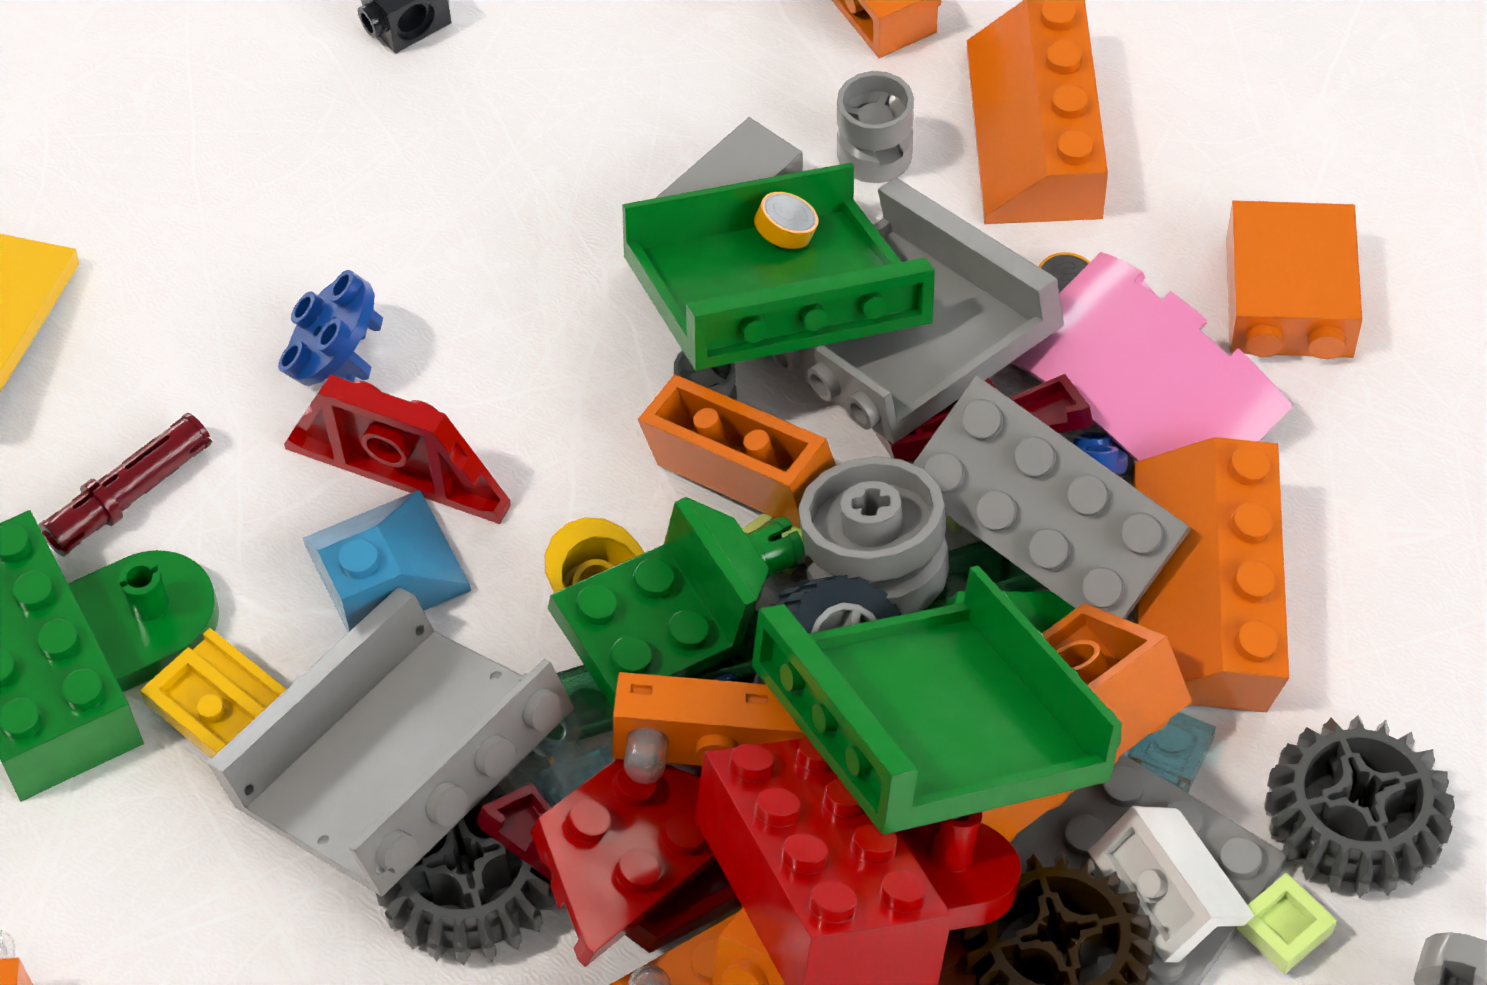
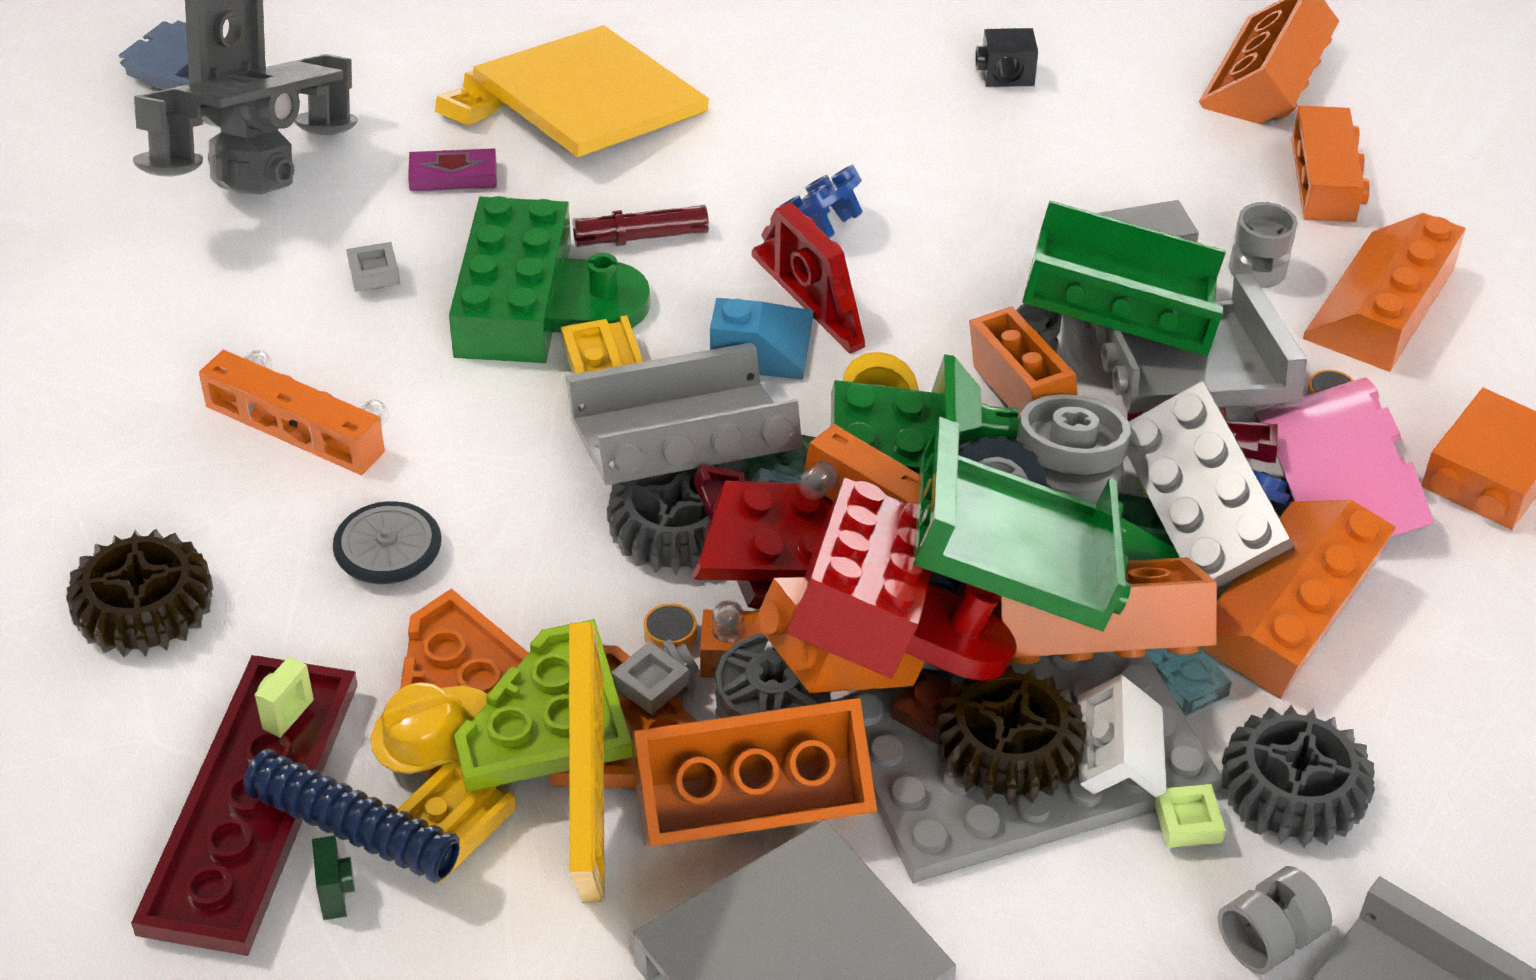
camera: 30 degrees right, 10 degrees down
(786, 220) = (1156, 262): tile -> none

